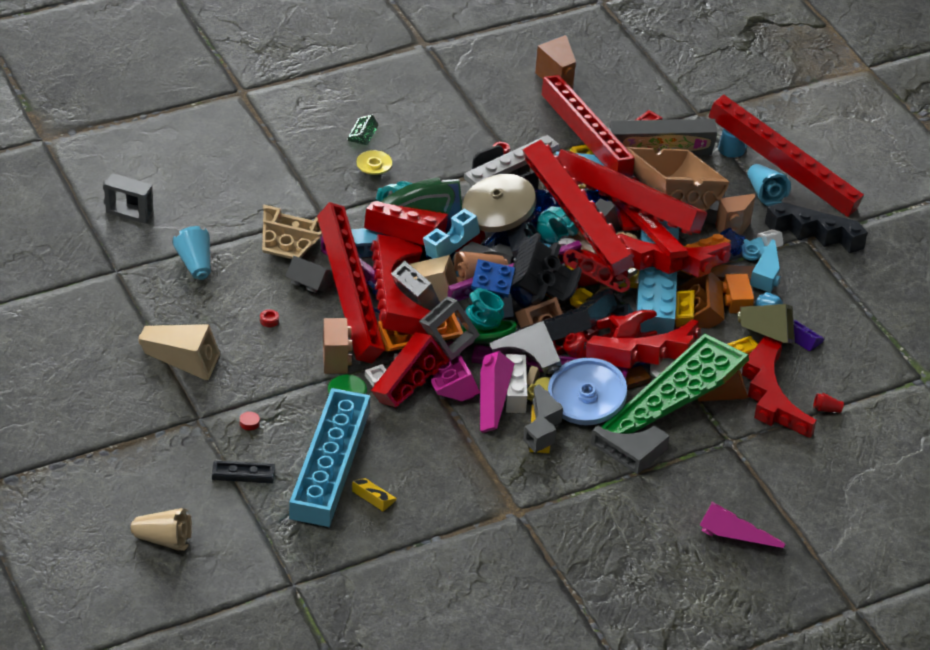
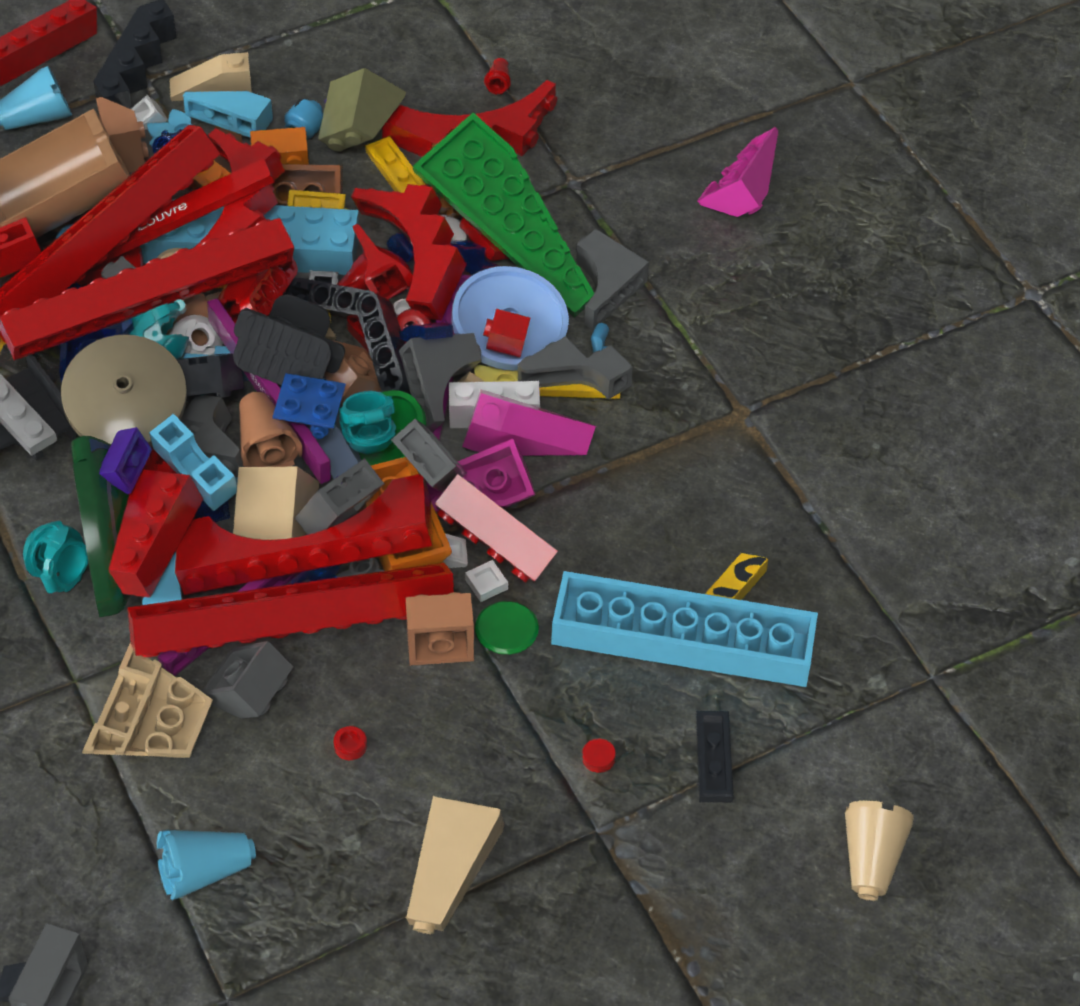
camera: 90 degrees left, 10 degrees up
(446, 202) = (125, 459): none -> dark purple slope
(554, 333) = (427, 331): none -> clear blue slope
(565, 380) = (506, 332): none -> red brick
(573, 439) = (599, 336): none -> dark azure arm
(640, 379) = (473, 256): none -> clear blue slope
(804, 267) = (220, 73): none -> tan slope

